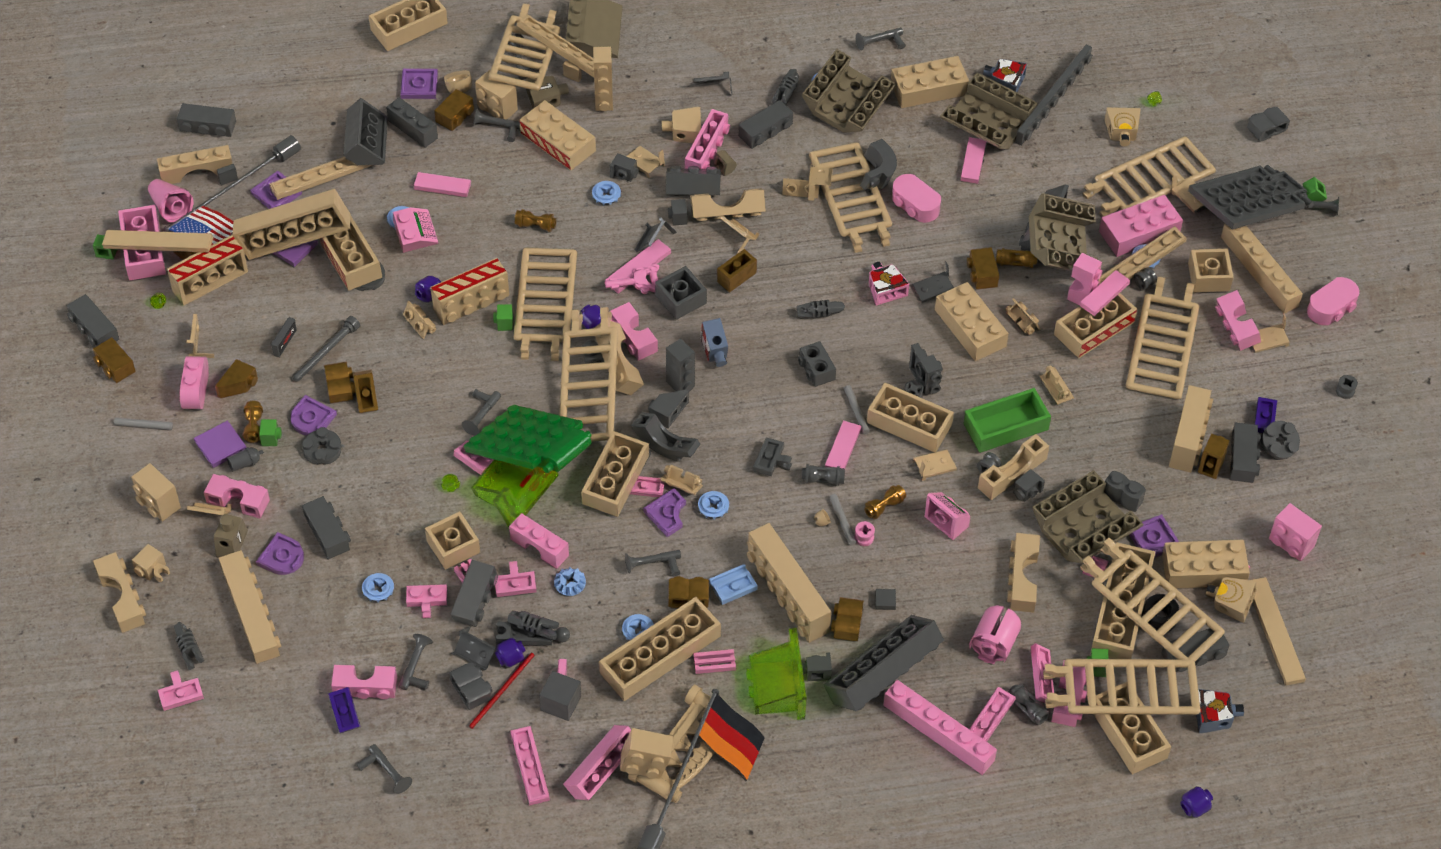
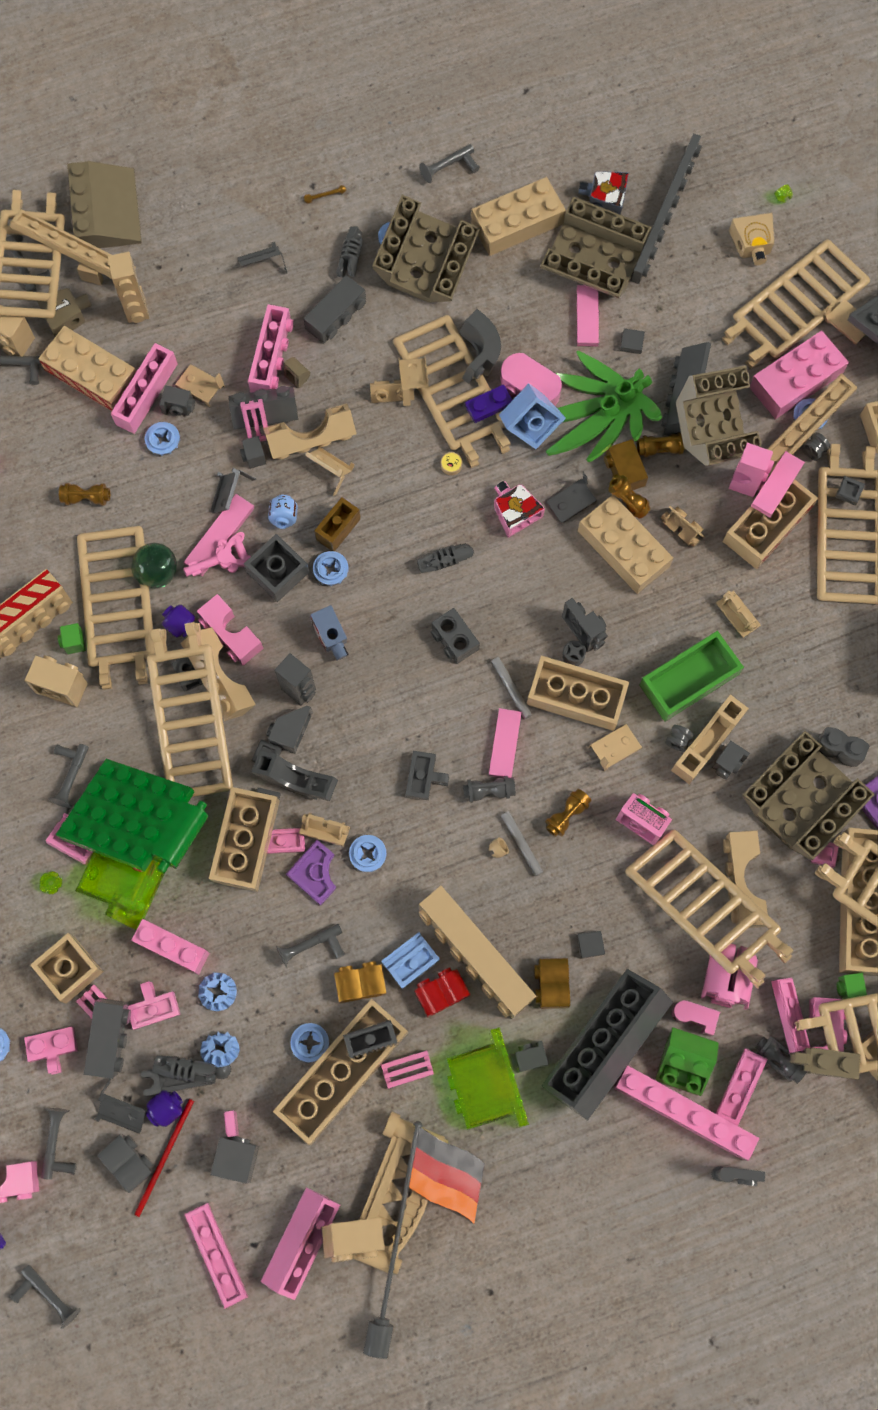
camera: 10 degrees left, 20 degrees up
(486, 341) = (56, 681): none -> tan brick
(566, 618) = (216, 1057): none -> light blue gear
(582, 276) = (154, 565): none -> clear green cylinder
(599, 154) = (144, 388): none -> bright pink brick
(684, 124) = (238, 327): tan torso -> none
(684, 174) = (253, 405): none -> bright pink tile
(690, 617) = (370, 1039): none -> dark grey brick
(694, 256) = (282, 511): none -> light blue head
(722, 297) = (327, 559): none -> light blue gear
(754, 610) = (442, 992): none -> red brick
(760, 46) = (308, 198): none -> pearl gold hinge
(839, 245) = (451, 463): none -> tile
(860, 533) = (551, 865): bright pink wheel -> none
(878, 206) = (488, 403): none -> dark purple plate
(912, 219) = (531, 416): none -> light blue slope
(949, 690) = (687, 1061): none -> bright green slope
(962, 661) = (696, 1014): none -> bright pink leg
(975, 278) = (635, 503): none -> pearl gold piece
(976, 230) = (620, 401): none -> bright green plant
(981, 774) = (744, 1176): none -> dark grey plate
(1006, 615) = (742, 962): none -> tan bar
(1007, 183) = (632, 341): none -> dark grey tile
(1062, 695) = (828, 1063): none -> dark tan hinge
(1167, 312) = (850, 490): none -> dark grey tile

